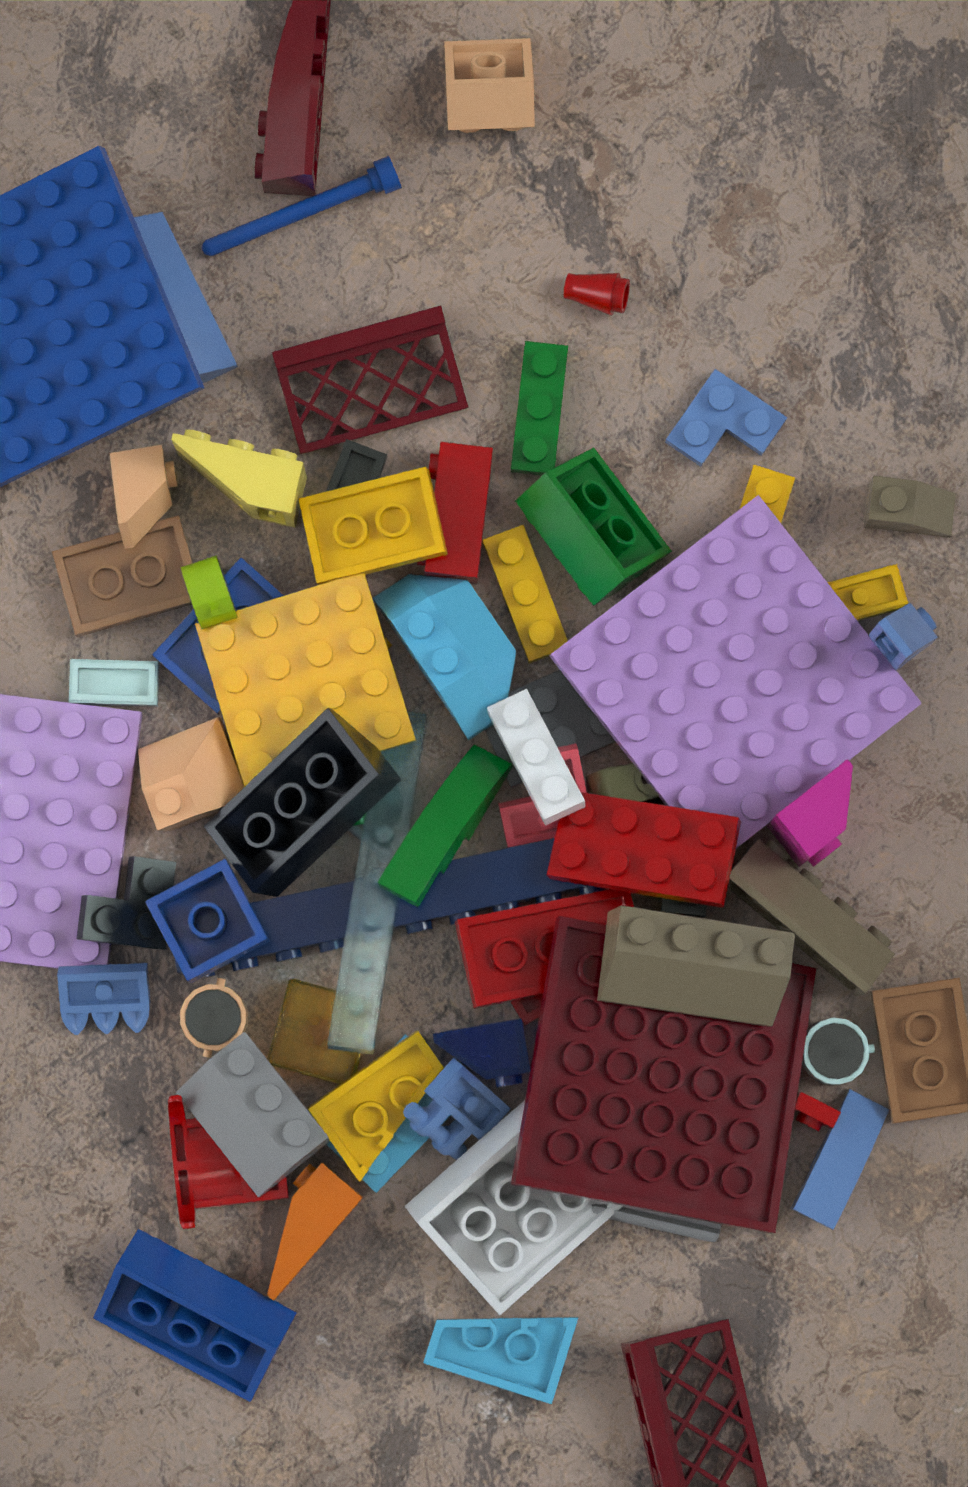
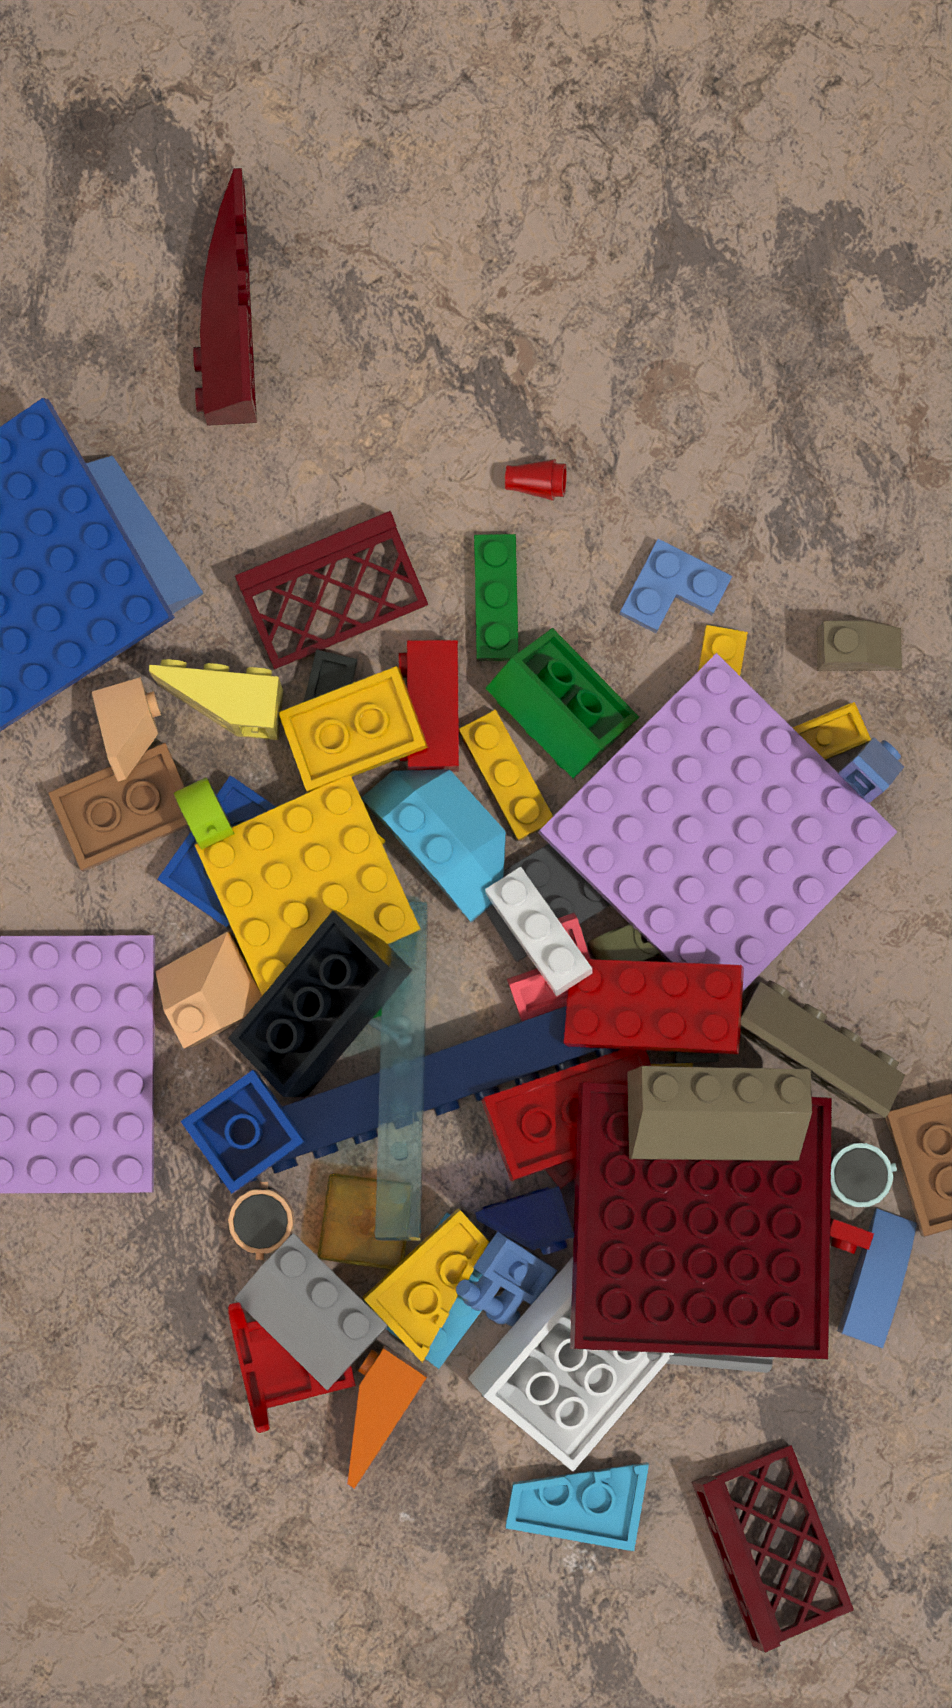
camera: 15 degrees left, 0 degrees up
(104, 993) = (152, 1211): medium blue plate -> none
(114, 682) = (124, 910): light aqua tile -> none
(128, 920) = (165, 1137): pearl dark grey plate -> none
(194, 1315) = (279, 1510): blue slope -> none
(379, 178) = (315, 398): blue piece -> none
(445, 824) = (459, 1007): green slope -> none
(489, 84) = (409, 296): light nougat slope -> none
(816, 818) = (816, 956): dark pink slope -> none

